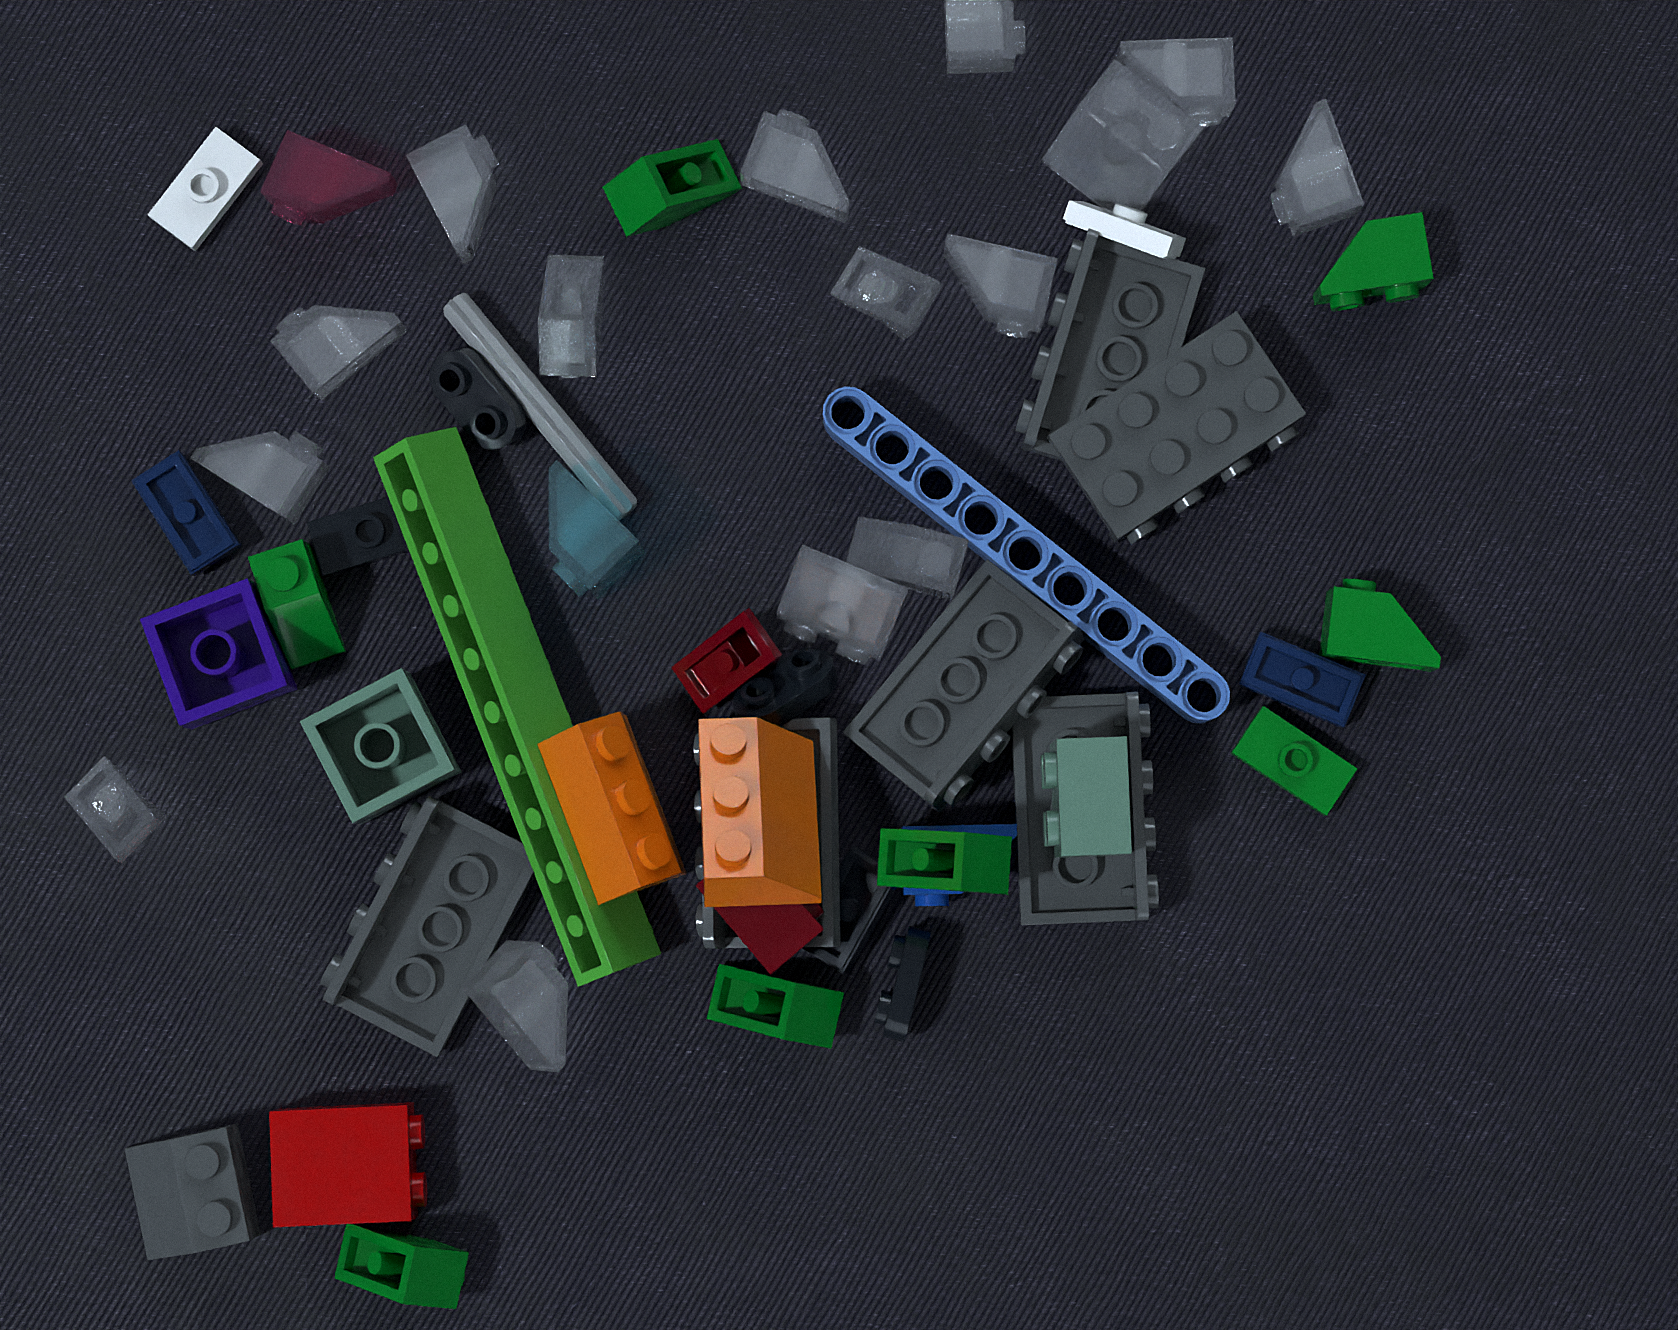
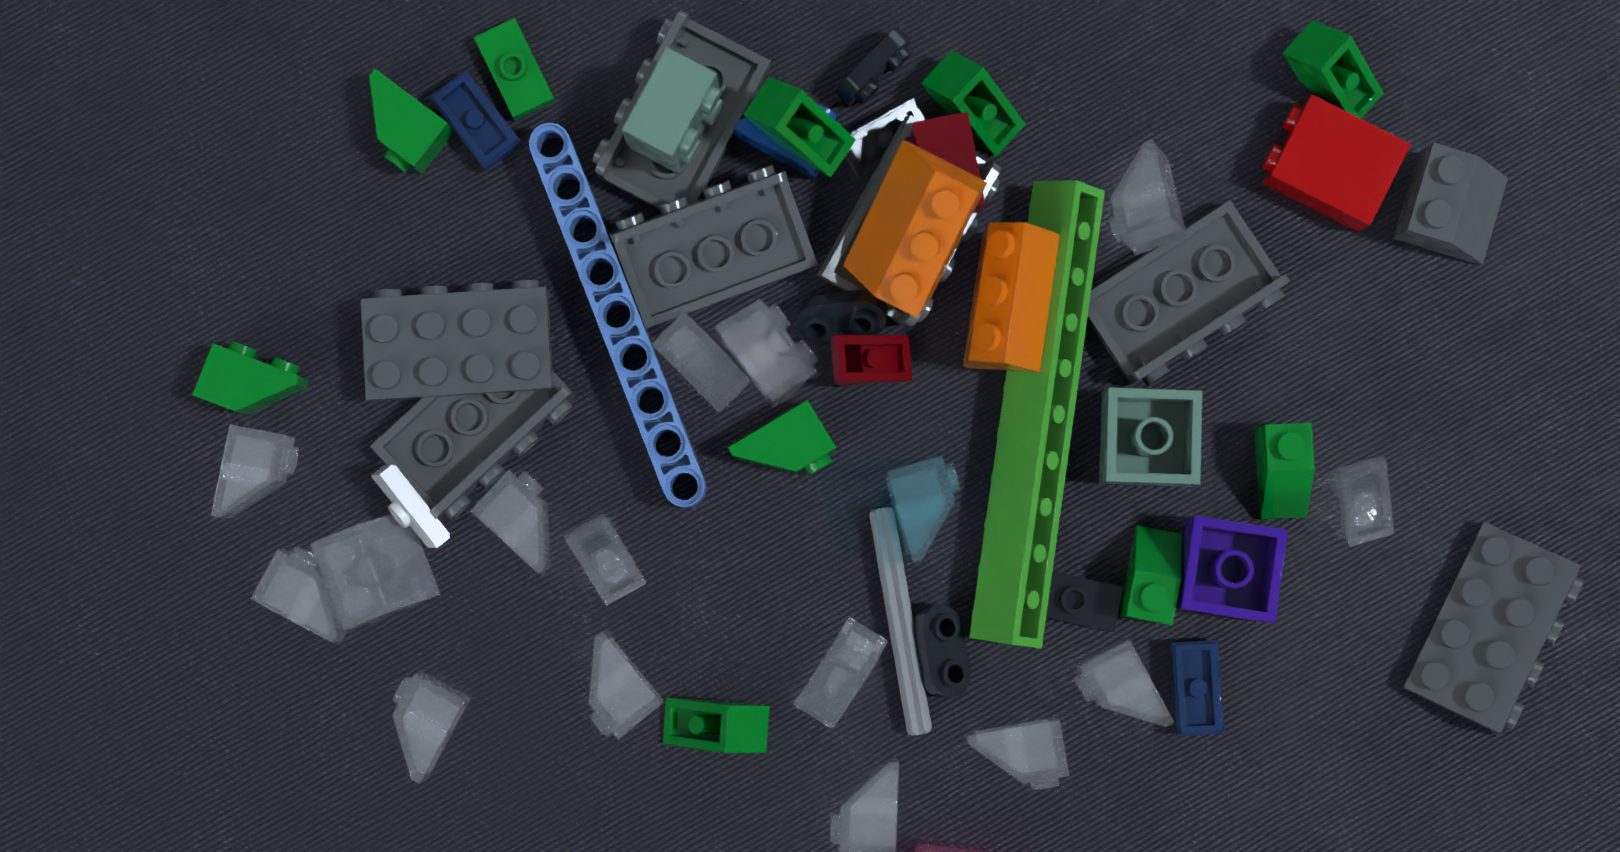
camera: 150 degrees left, 0 degrees up
(219, 798) = (1284, 469): none -> green slope
(764, 523) = (788, 443): none -> green slope

